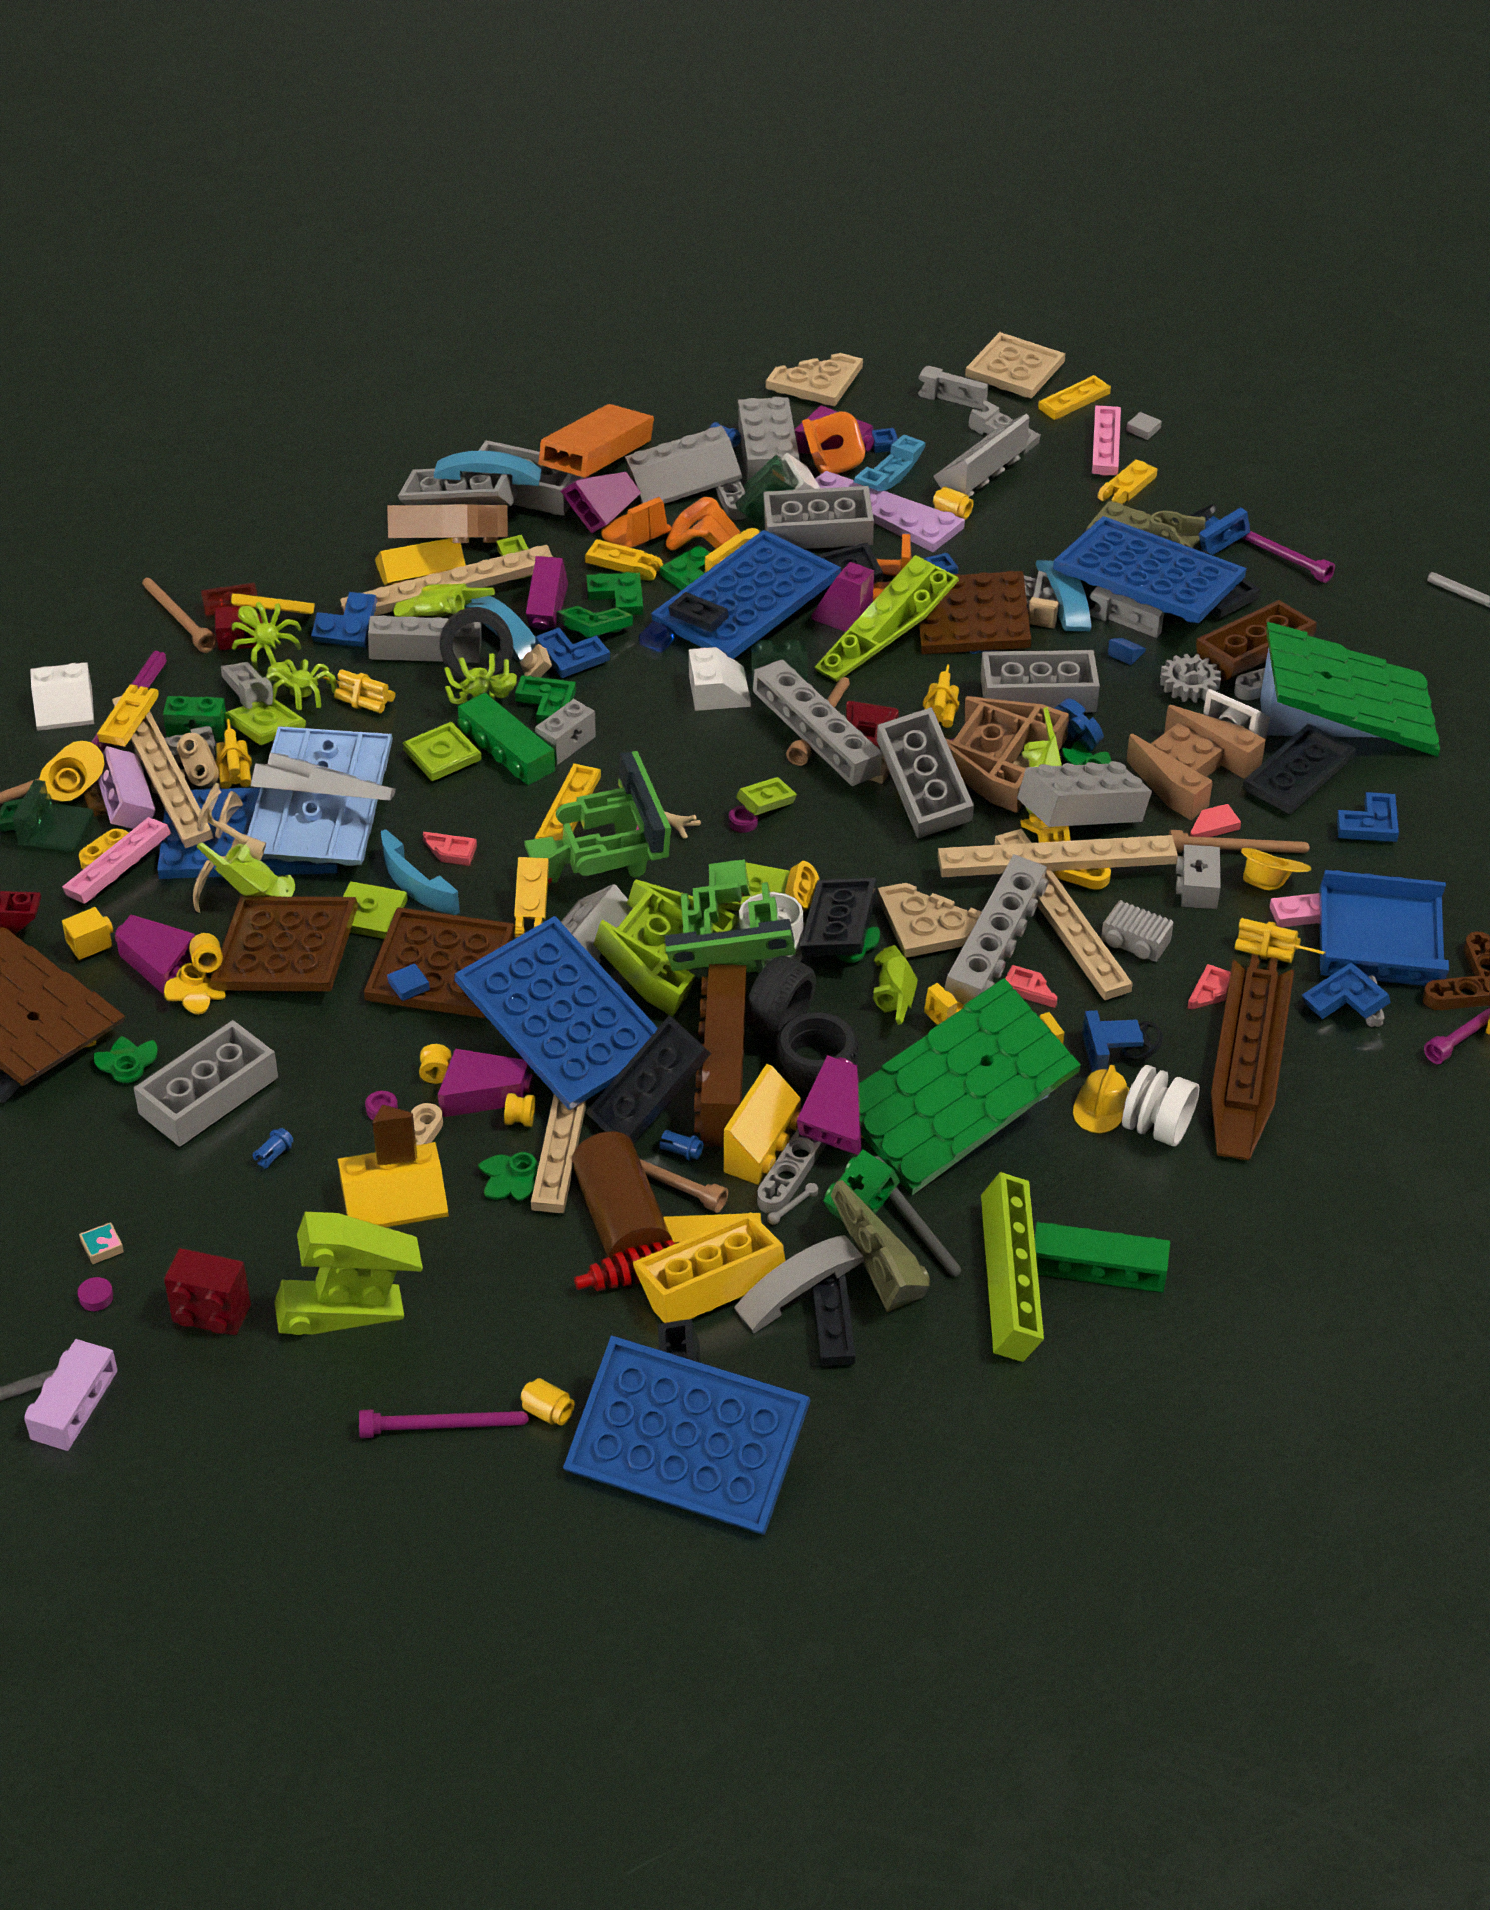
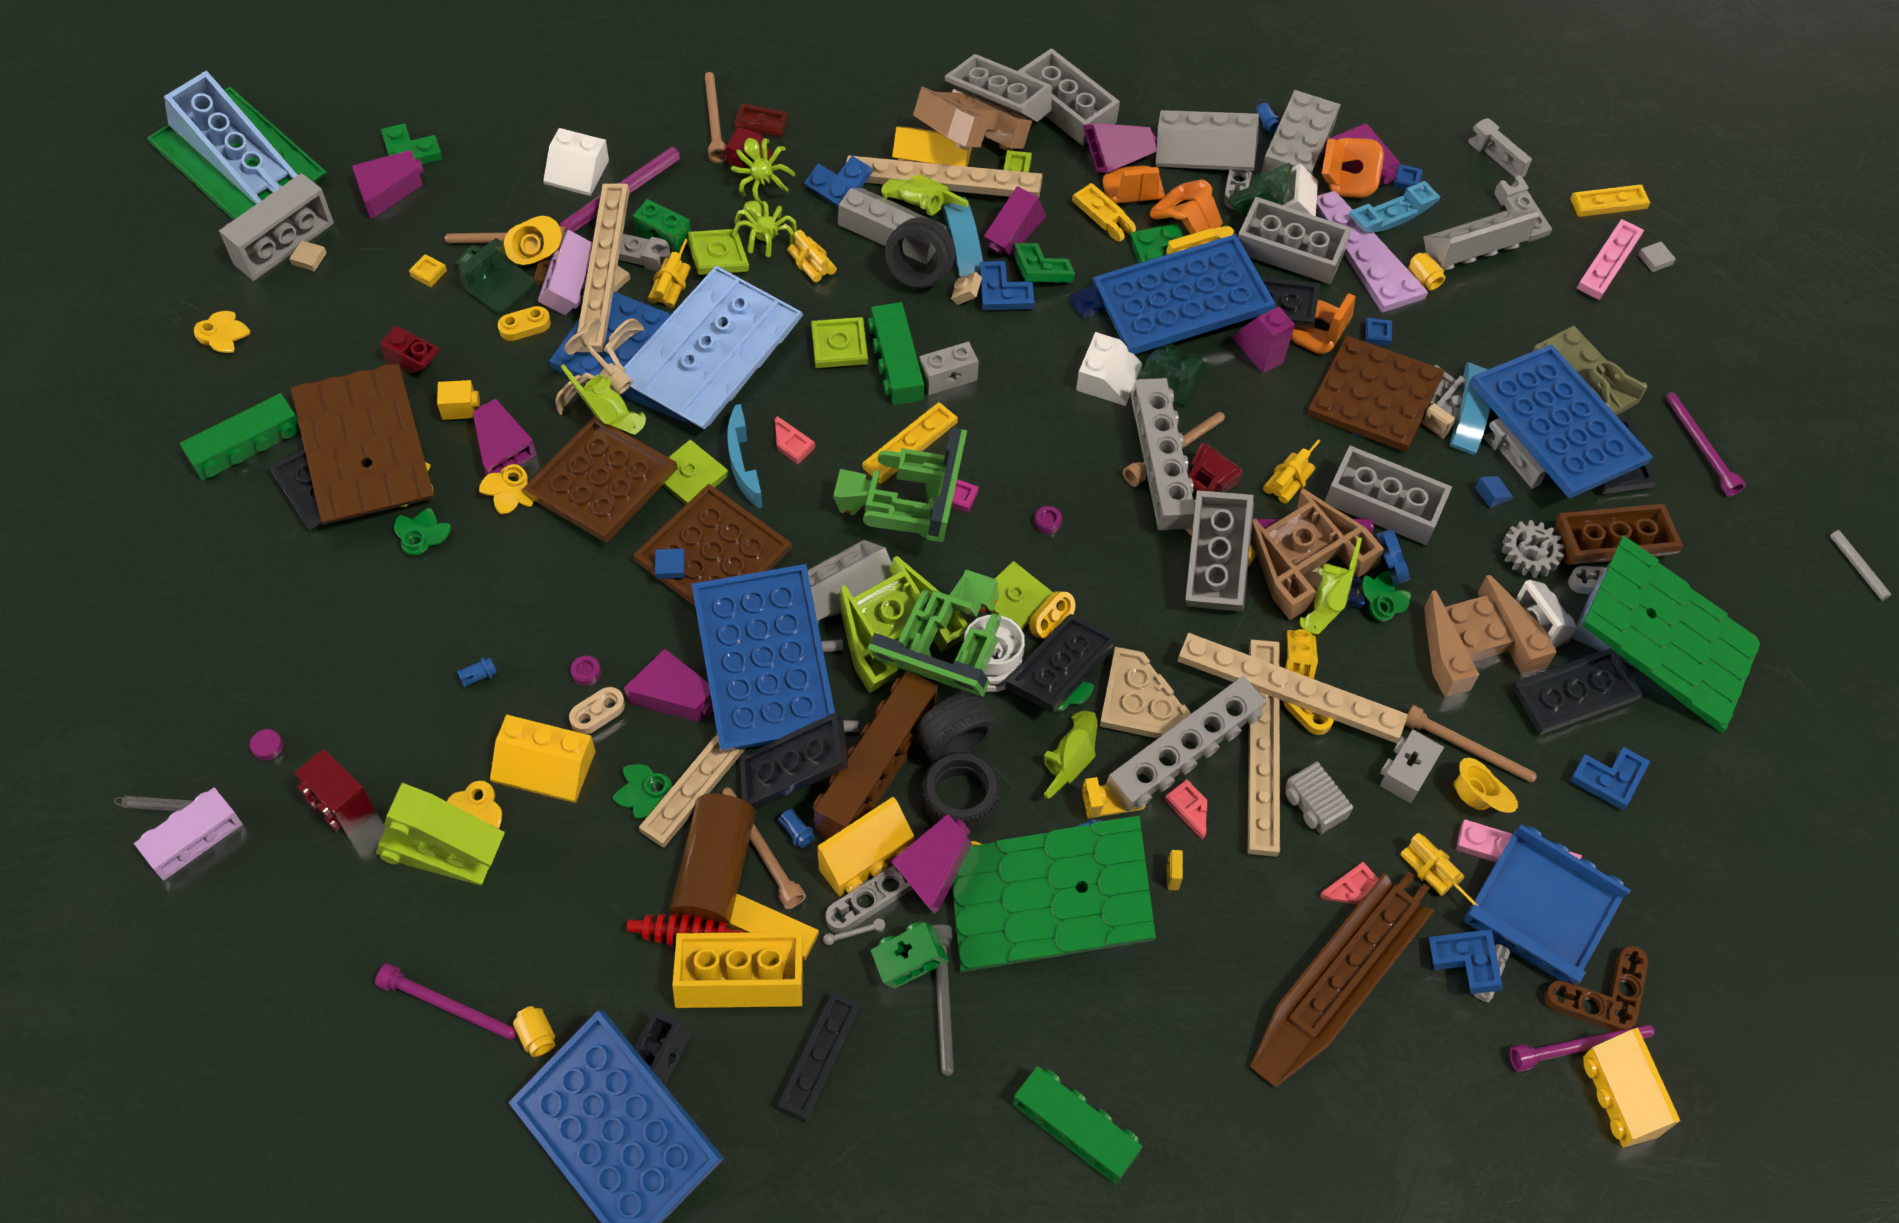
camera: 25 degrees right, 15 degrees up
(101, 1243) = (299, 698): tile -> none
(116, 860) = (522, 338): bright pink plate -> none
(127, 715) = (600, 206): yellow hinge -> none
(198, 758) = (639, 268): tan plate -> none
(205, 952) = (530, 462): yellow brick -> none
(206, 1083) = (457, 587): light grey brick -> none
(248, 684) = (722, 210): light grey plate -> none
(269, 603) = (787, 140): yellow tile -> none
(302, 776) = (695, 328): light grey wedge -> none
(394, 1136) = (542, 724): reddish brown slope -> none
(434, 1063) = (647, 650): yellow wheel -> none
(480, 681) = (902, 290): lime animal -> none
(519, 1109) = (686, 730): yellow wheel -> none
(523, 471) = (1033, 76): dark azure slope -> none
(531, 892) = (817, 524): yellow hinge -> none
(546, 692) = (960, 323): green plate -> none
(595, 440) = (1143, 85): orange brick -> none
(622, 587) = (1086, 238): green plate -> none
(681, 821) = (988, 499): tan bar -> none
(698, 612) = (1127, 296): black plate -> none
(766, 796) = (1076, 508): lime plate -> none
(795, 1276) = (805, 1015): light grey slope -> none
(817, 380) = (1384, 91): tan plate -> none
(887, 1260) = (887, 1045): olive wedge -> none
(894, 612) = (1292, 371): lime wedge -> none
(1011, 1267) = (989, 1100): lime brick -> none
(1015, 365) = (1574, 145): tan plate -> none
(1084, 794) = (1350, 637): light grey brick -> none
(1101, 1101) = (1181, 961): yellow piece -> none
(1126, 1034) = (1232, 904): blue piece -> none
(1128, 482) = (1604, 312): yellow hinge -> none
(1168, 1108) = (1225, 1004): white wheel -> none
(1216, 822) = (1462, 712): coral tile -> none
(1221, 532) = (1655, 401): blue piece -> none

